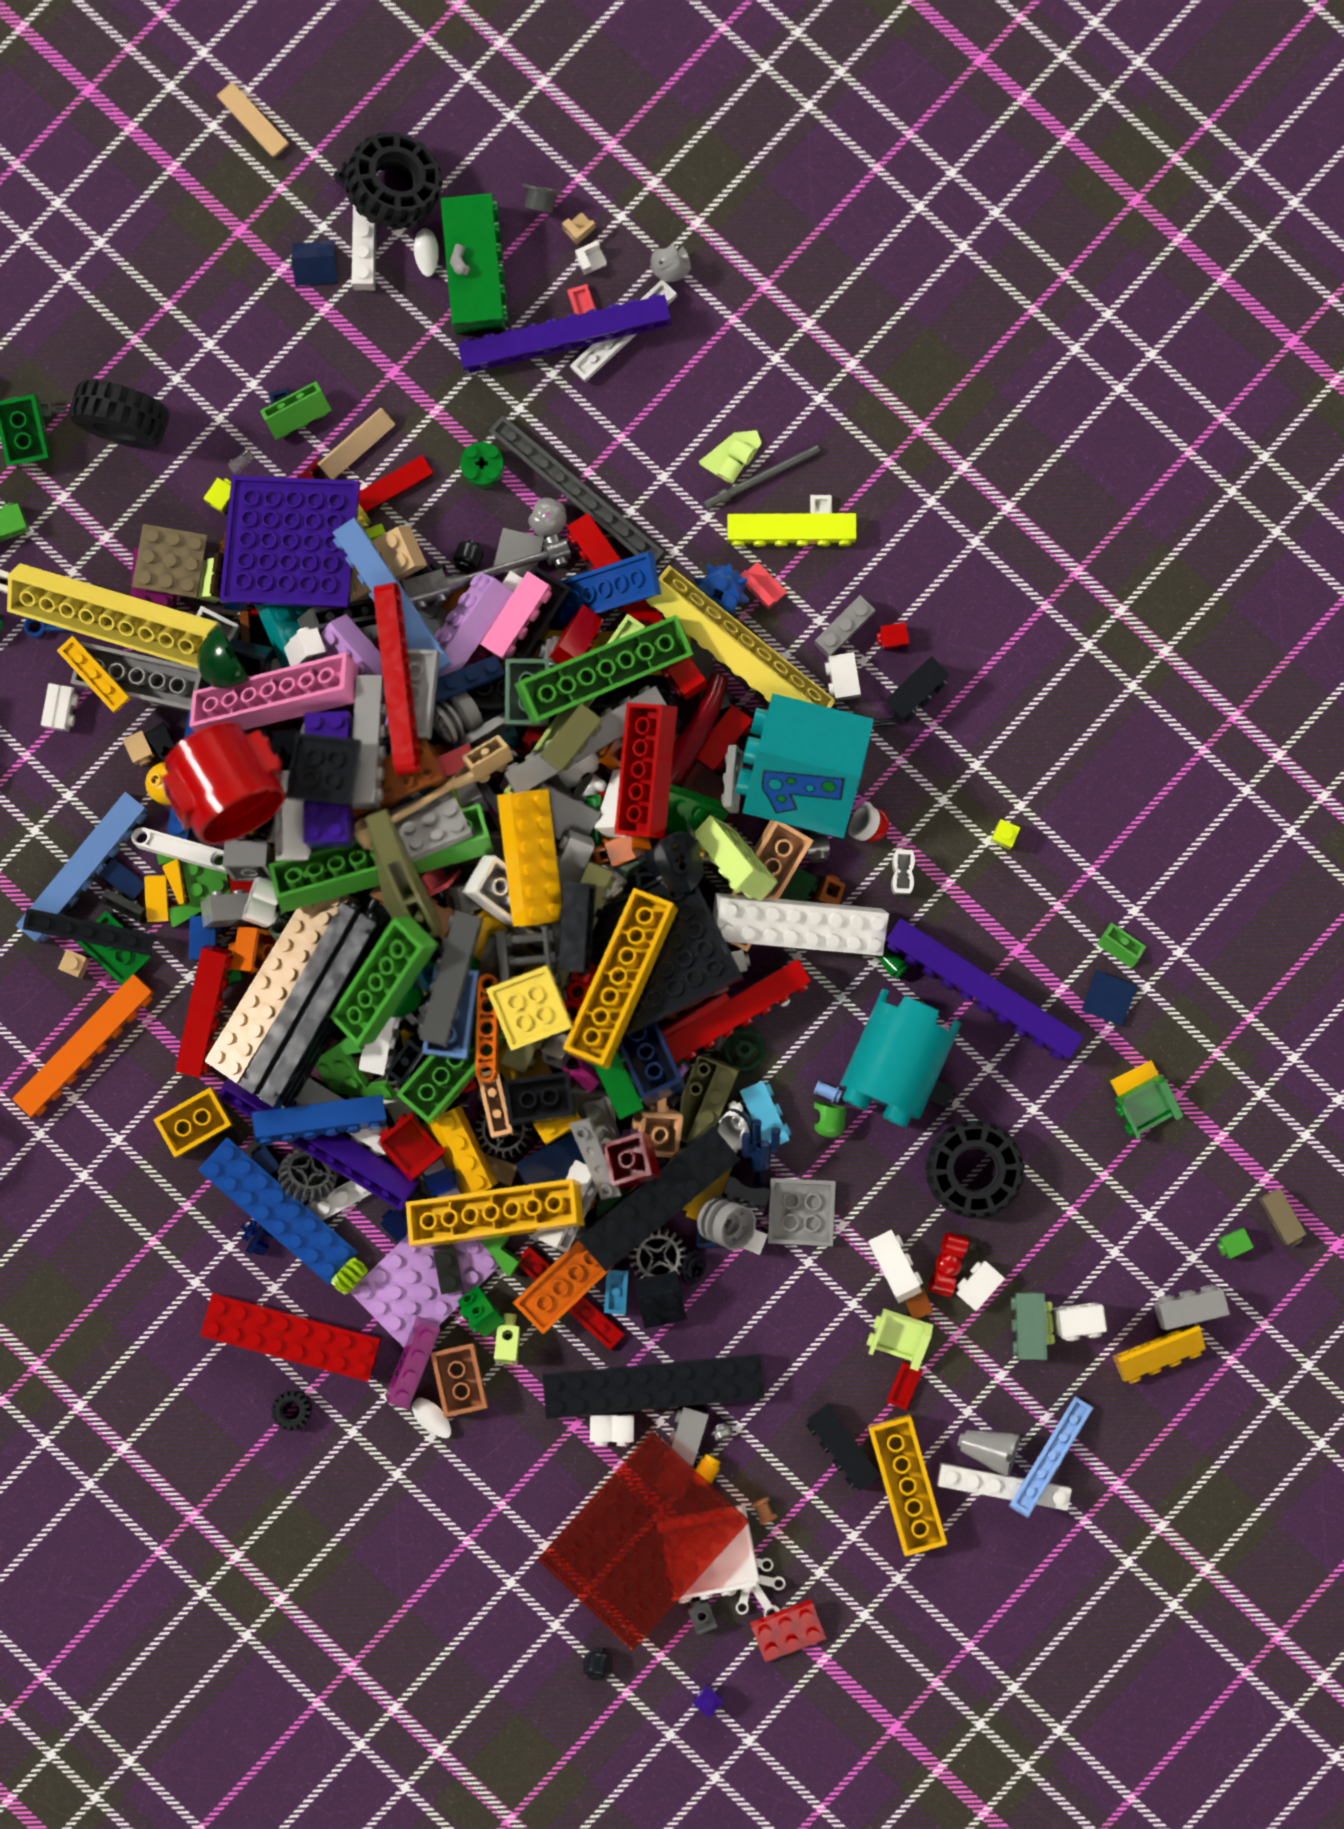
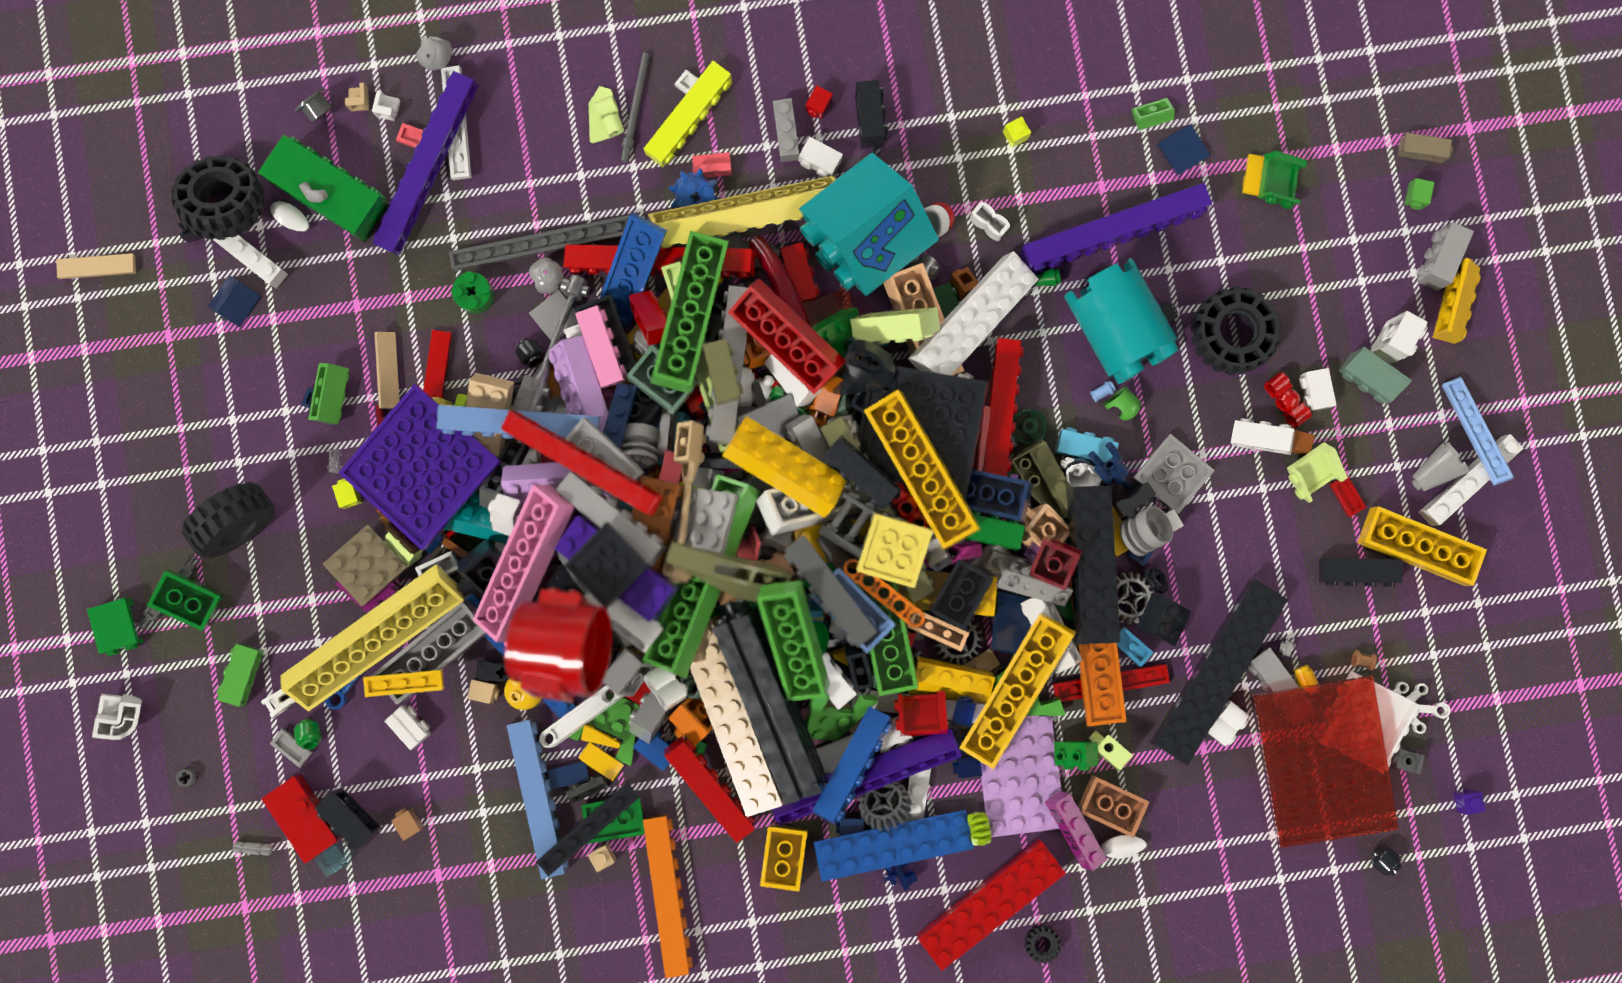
camera: 60 degrees left, 0 degrees up
(219, 663) = (467, 585): dark green brick -> none
(448, 1271) = (1028, 755): pearl dark grey plate -> none
(733, 760) = (834, 287): white plate -> none
(788, 1630) = (1461, 707): red plate -> none

